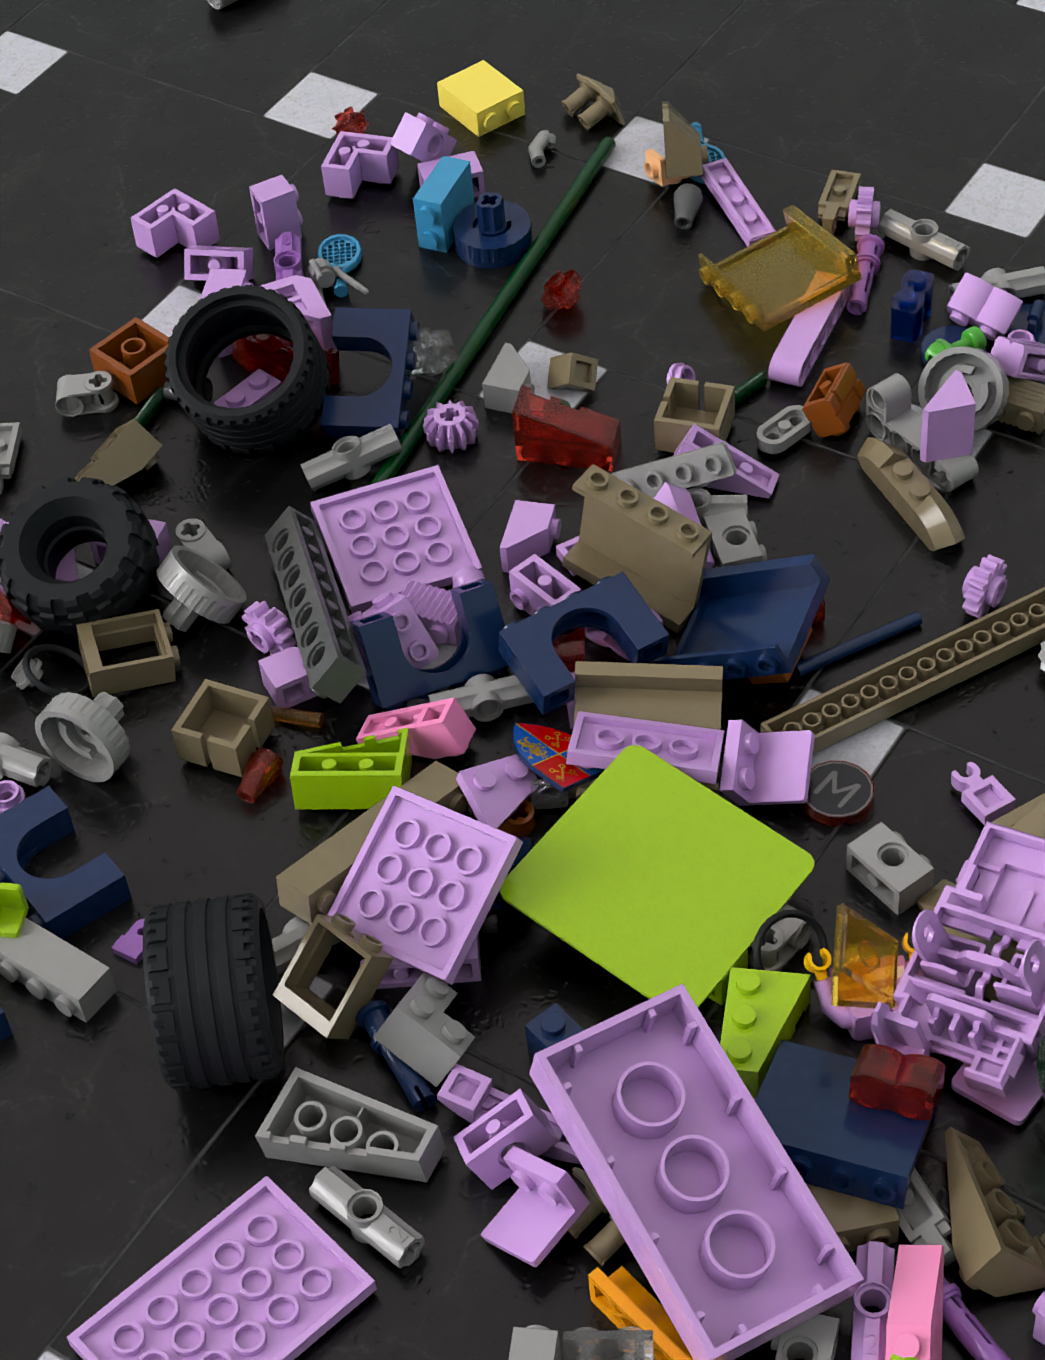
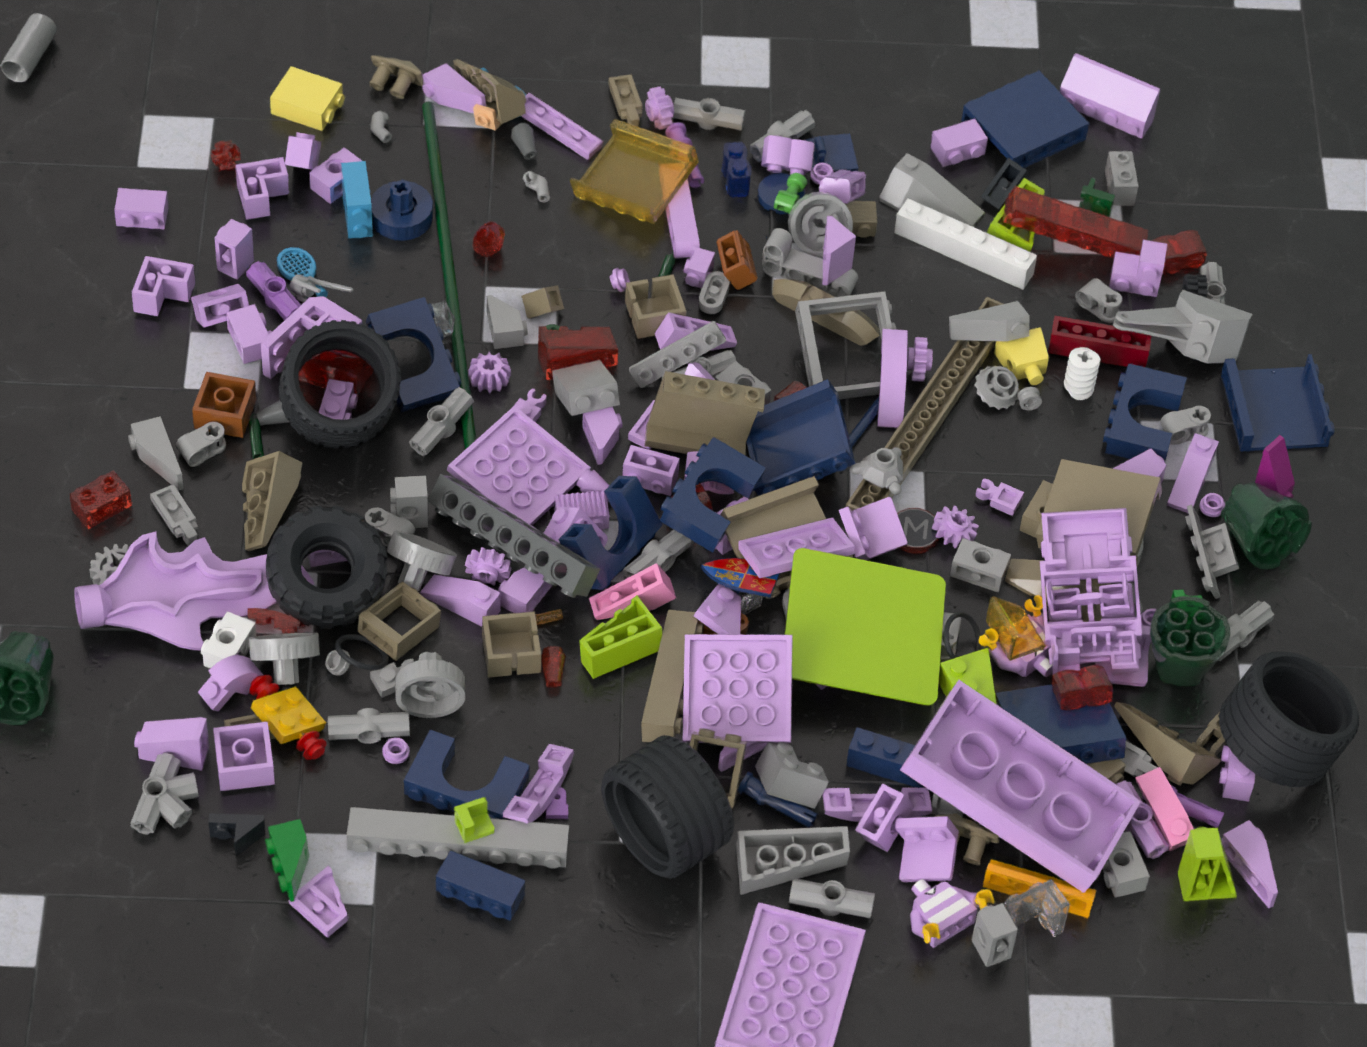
camera: 40 degrees left, 5 degrees up
(37, 377) = (156, 450): none -> light grey slope
(124, 915) = (543, 786): none -> lavender slope
(222, 656) = (463, 597): none -> lavender slope
(225, 150) = (141, 208): none -> lavender brick
(240, 526) = (410, 500): none -> light grey brick
(466, 484) = (531, 406): none -> lavender plate
(492, 1303) = (944, 910): none -> torso
(538, 476) = (585, 387): none -> light grey brick
(638, 128) = (451, 89): none -> lavender slope
(667, 253) = (538, 184): none -> light grey arm
(784, 392) = (698, 266): none -> lavender brick
(833, 695) = (882, 469): none -> light grey rock
(889, 804) = (954, 526): none -> lavender gear
(910, 482) = (808, 308): none -> light grey window
(926, 591) = (892, 378): none -> lavender slope

